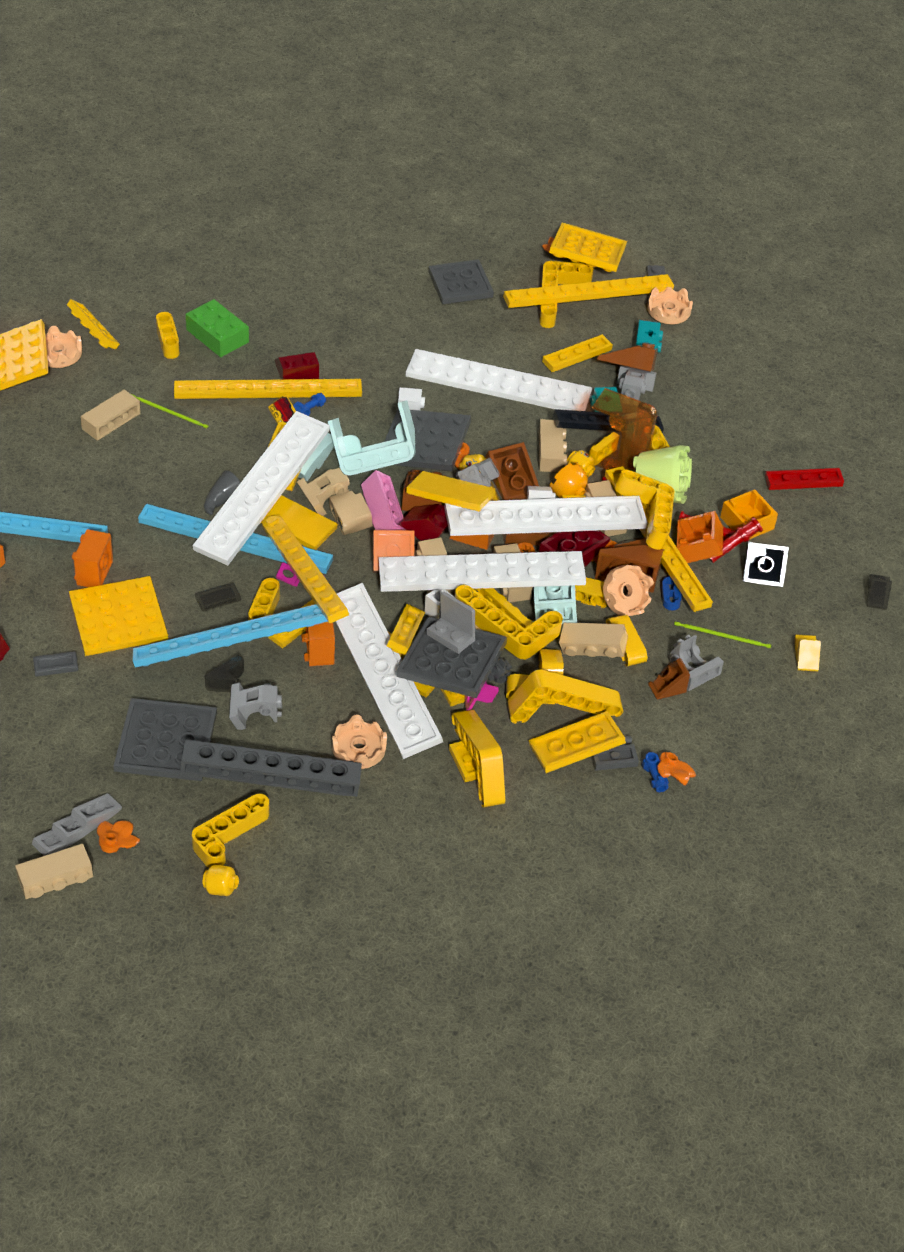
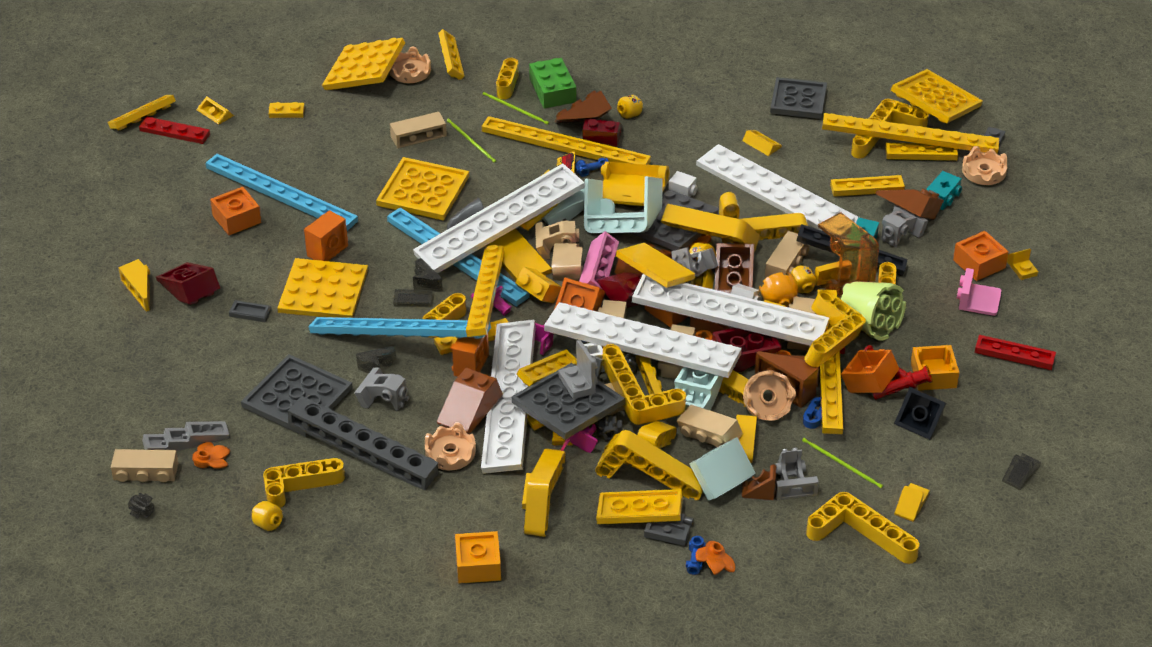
camera: 30 degrees right, 5 degrees down
(80, 917) = (141, 505): none -> clear smoke gear
(154, 476) = (423, 188): none -> yellow plate
(192, 364) = (516, 108): none -> lime piece
(220, 570) = (426, 277): none -> clear smoke slope
(277, 343) = (591, 108): none -> dark orange slope
(308, 332) = (629, 106): none -> yellow head
(339, 545) = (538, 285): none -> yellow brick
(349, 688) = (469, 400): none -> slope
(363, 411) = (626, 181): none -> yellow door
(375, 593) = (543, 337): none -> dark pink bracket
(452, 336) = (761, 142): none -> yellow slope
(460, 848) = (478, 557): none -> light orange container
(469, 434) = (710, 224): none -> yellow beam
(489, 429) = (767, 226): none -> yellow beam
(602, 306) = (919, 151): none -> yellow plate
(631, 679) = (722, 469): none -> light aqua slope
(721, 394) = (981, 254): none -> orange container
(740, 435) = (977, 297): none -> bright pink bracket
(753, 390) = (1021, 264): none -> yellow slope
(788, 687) = (868, 522): none -> yellow beam

